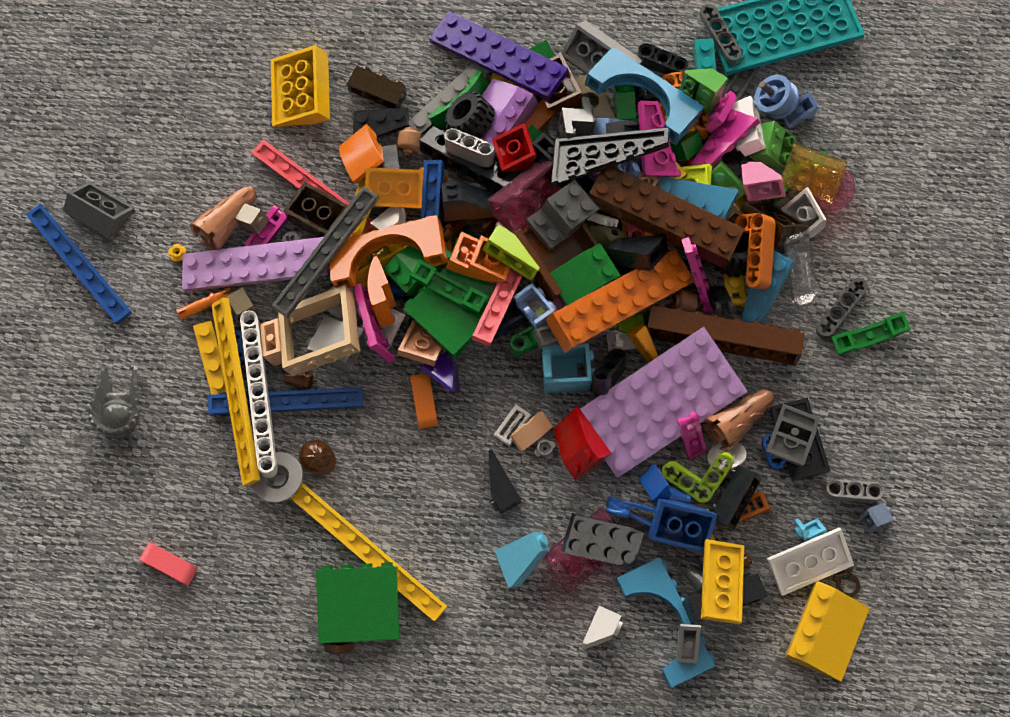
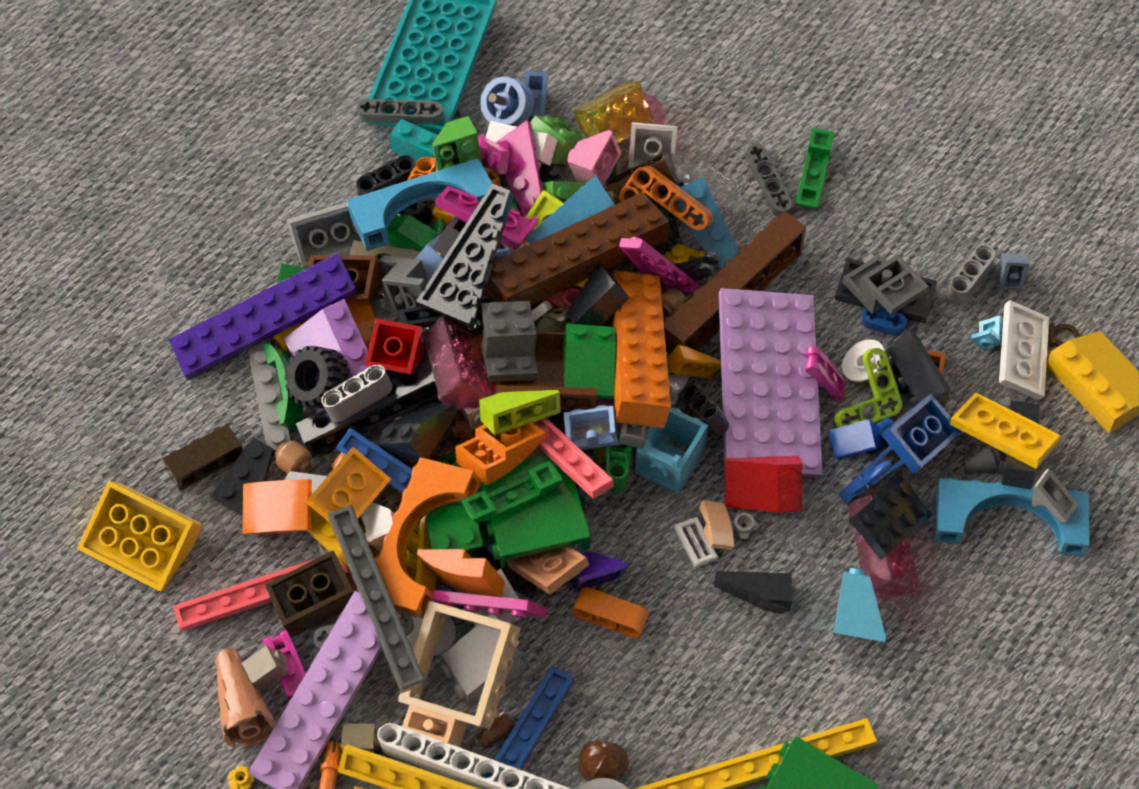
camera: 60 degrees left, 15 degrees down
(603, 627) = (984, 574): white slope -> none
(736, 420) = (833, 328): nougat cone -> none

